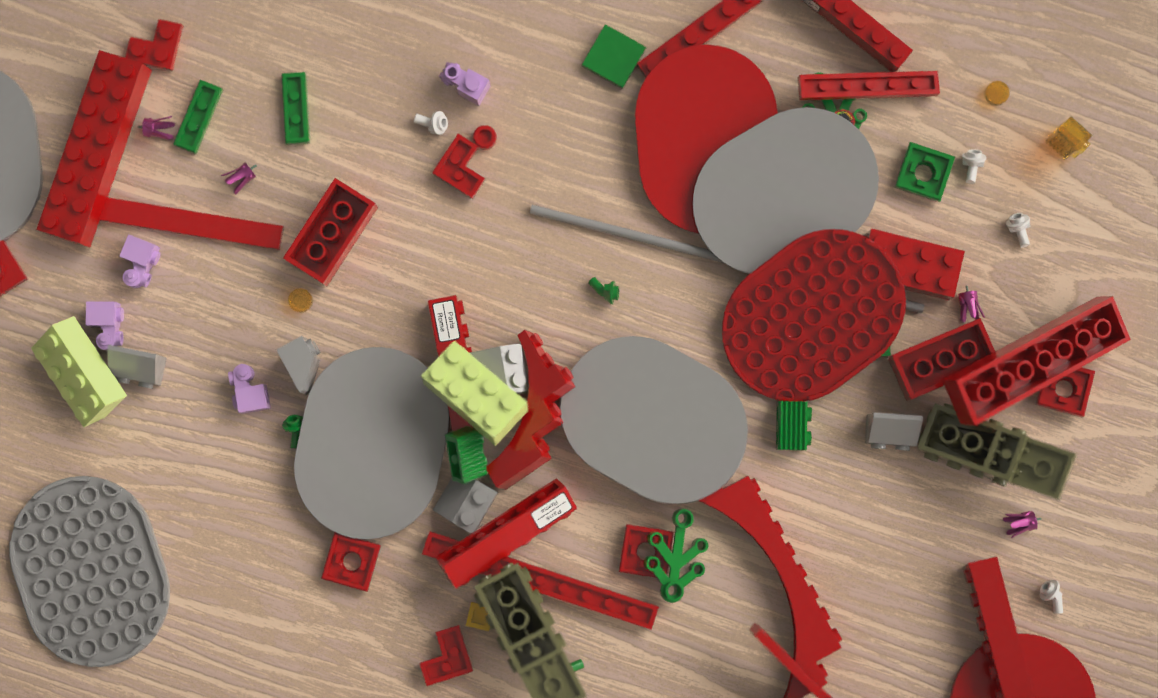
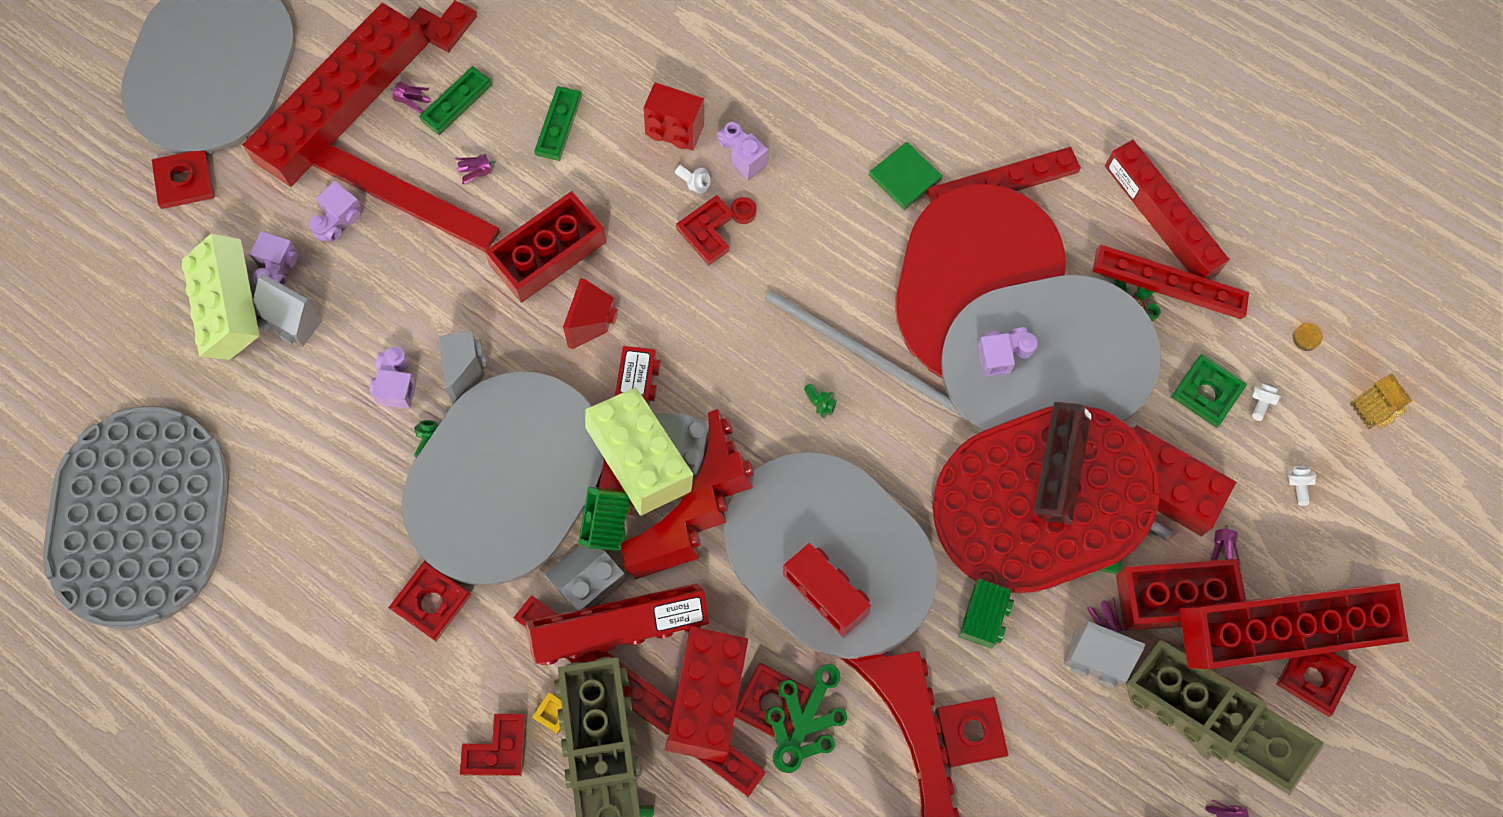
camera: 10 degrees right, 15 degrees down
(300, 300) = (487, 307): clear yellow tile -> none
(390, 281) = (588, 314): none -> red slope
(396, 74) = (673, 116): none -> red brick
(594, 564) = (707, 695): none -> red brick
(661, 454) = (827, 589): none -> red brick
(739, 202) = (997, 350): none -> lavender brick
(790, 520) = (957, 747): none -> red piece
(819, 289) = (1062, 463): none -> clear smoke brick
(891, 400) = (1111, 622): none -> flat silver piece

